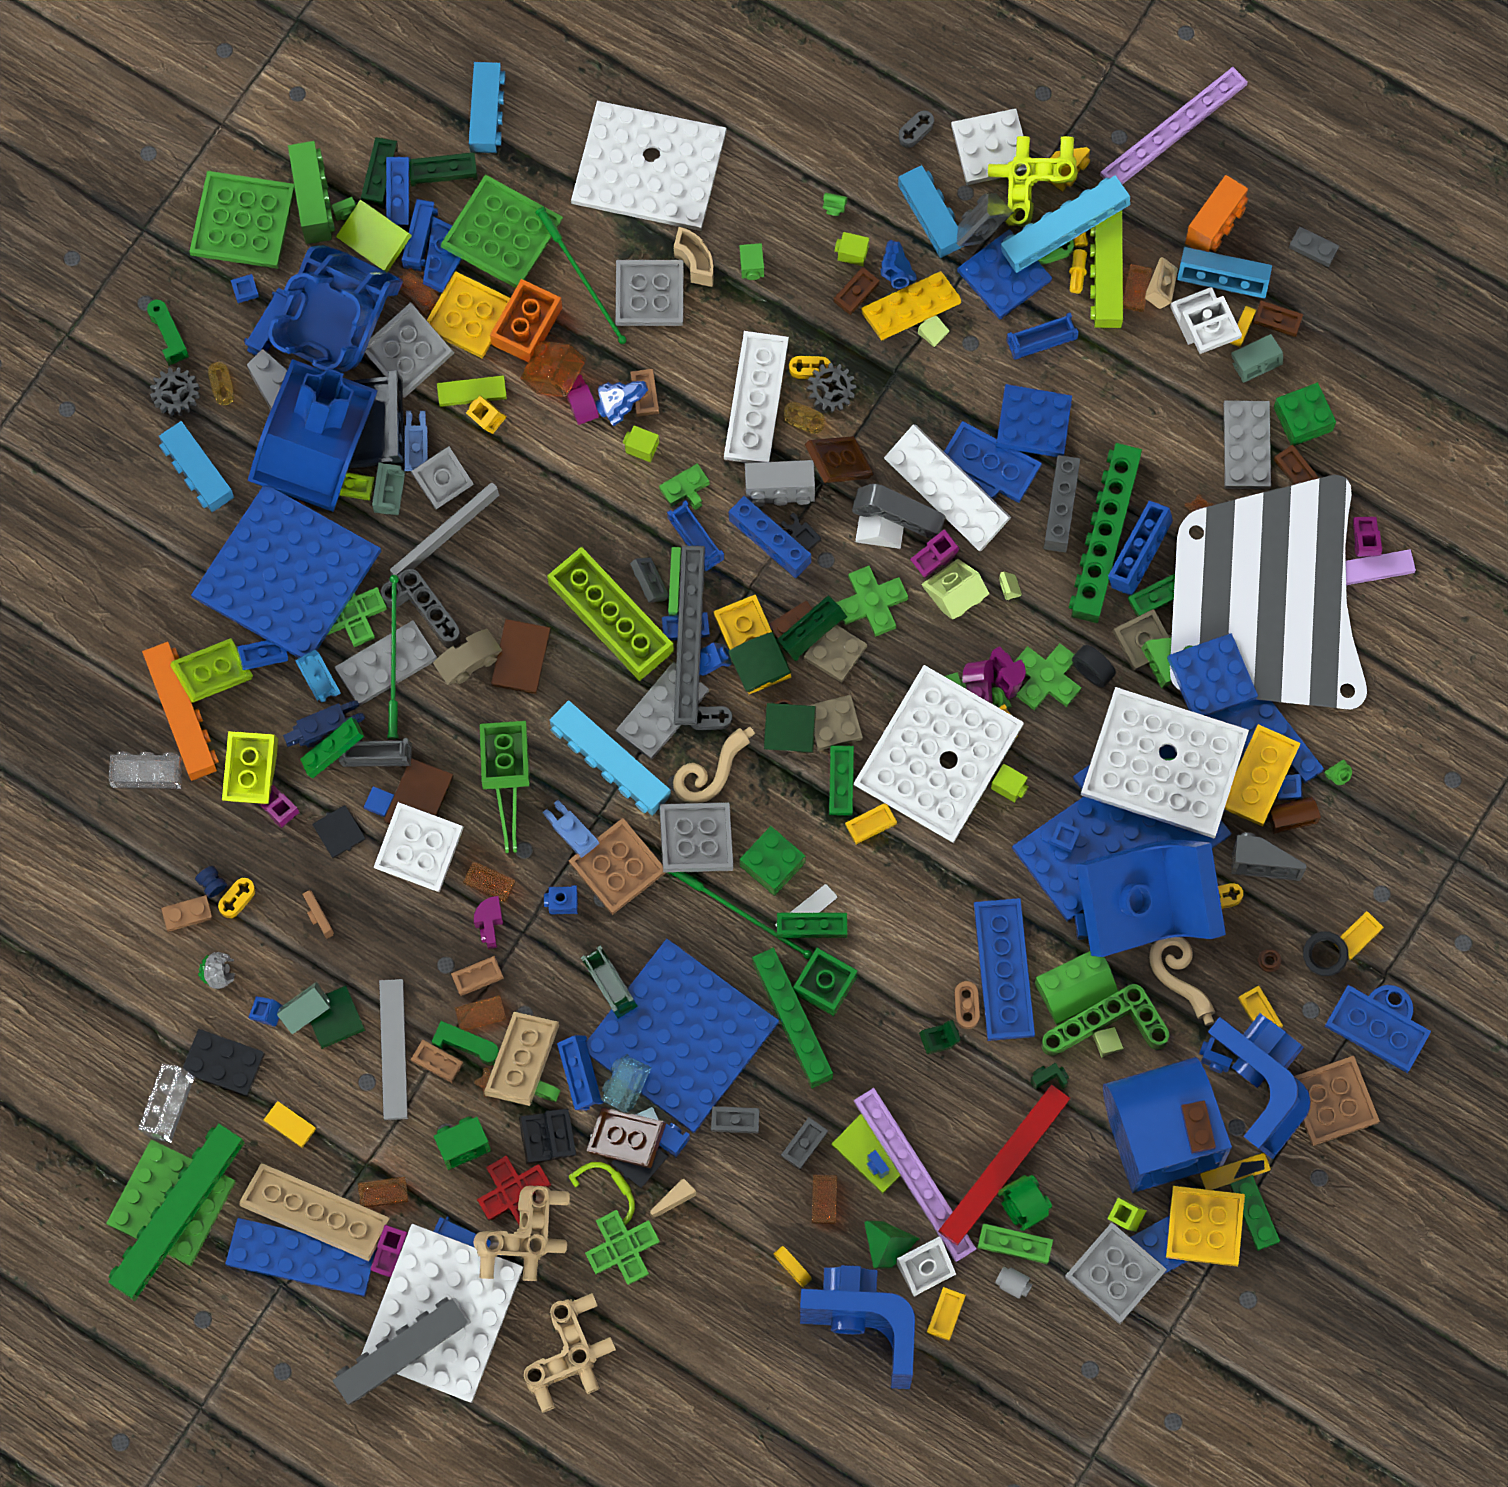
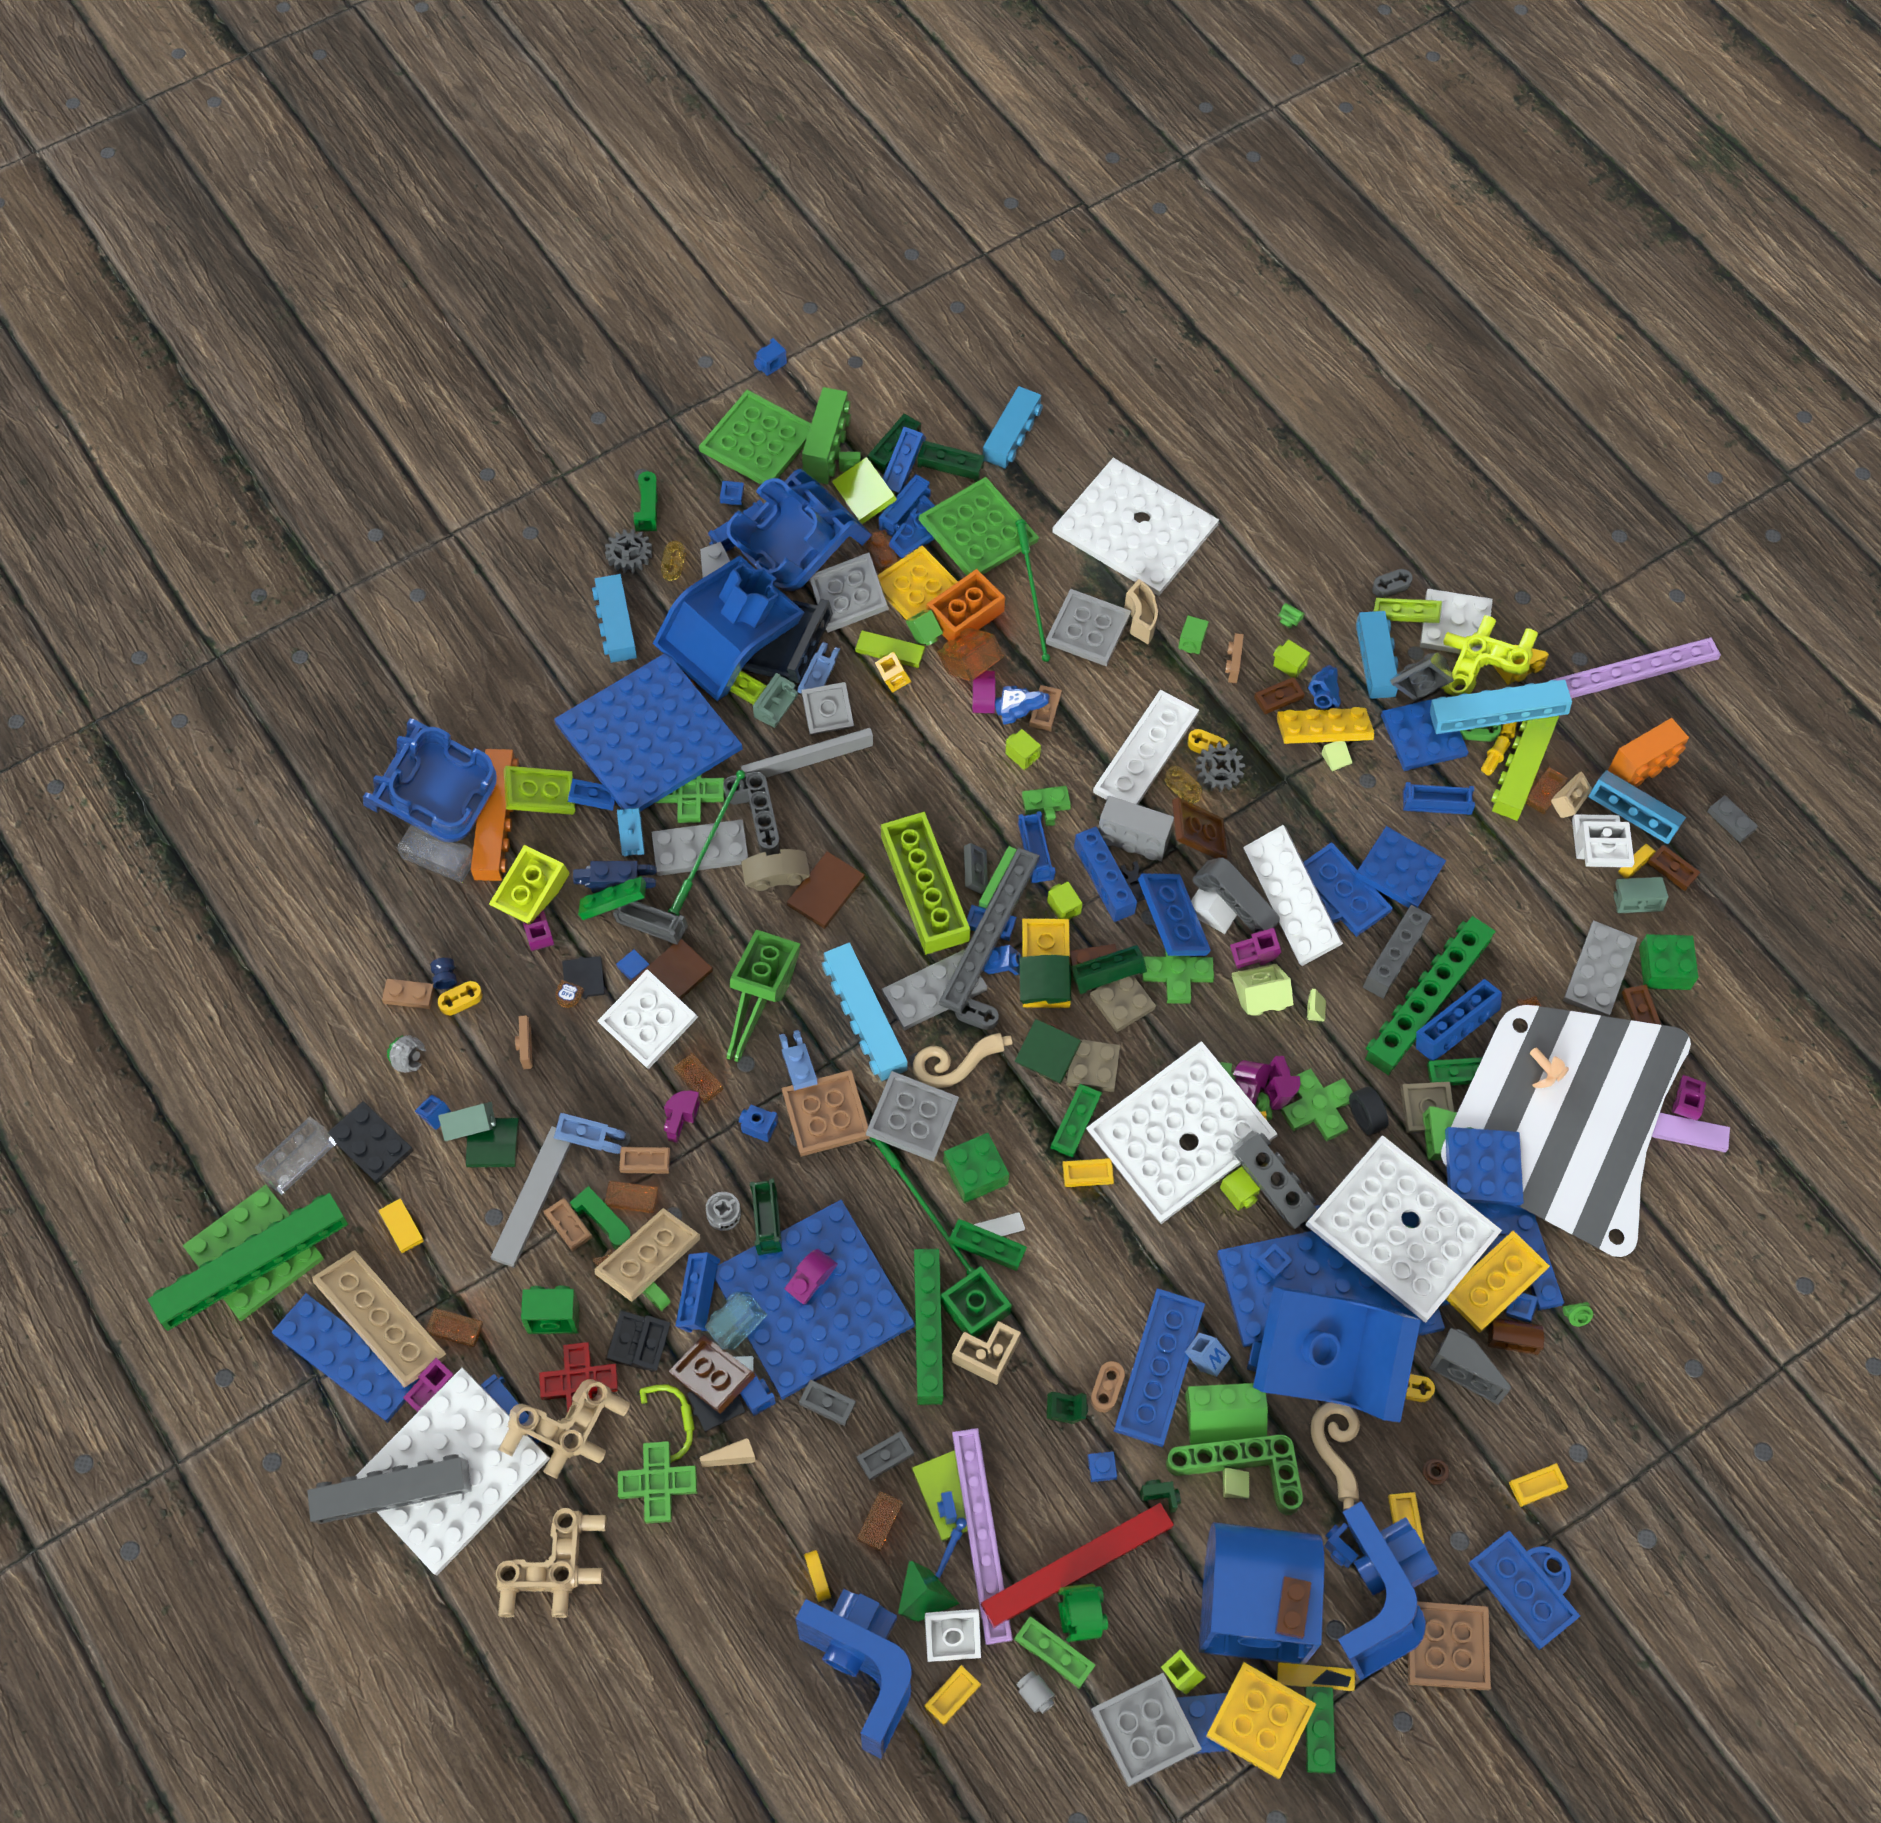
camera: 20 degrees right, 10 degrees down
(114, 708) = (434, 783): none -> blue piece
(213, 125) = (770, 357): none -> blue brick
(334, 853) = (568, 994): none -> clear orange tile
(415, 973) = (587, 1133): none -> medium blue hinge
(496, 357) = (924, 627): none -> bright green brick
(568, 992) = (723, 1210): none -> light grey wheel
(673, 1017) = (810, 1274): none -> magenta brick
(744, 579) = (1064, 901): none -> lime brick
(801, 277) = (1233, 665): none -> medium nougat plate
(849, 552) = (1174, 915): none -> blue plate
(853, 1025) = (988, 1358): none -> tan brick
(893, 1183) = (956, 1535): none -> blue piece
(942, 152) = (1410, 610): none -> lime tile
(990, 1074) = (1102, 1466): none -> blue plate
(1004, 751) = (1246, 1152): none -> dark grey brick
(1041, 942) = (1208, 1354): none -> medium blue brick
(1241, 563) = (1554, 1070): none -> light nougat plant
(1313, 940) = (1506, 1470): black tyre -> none

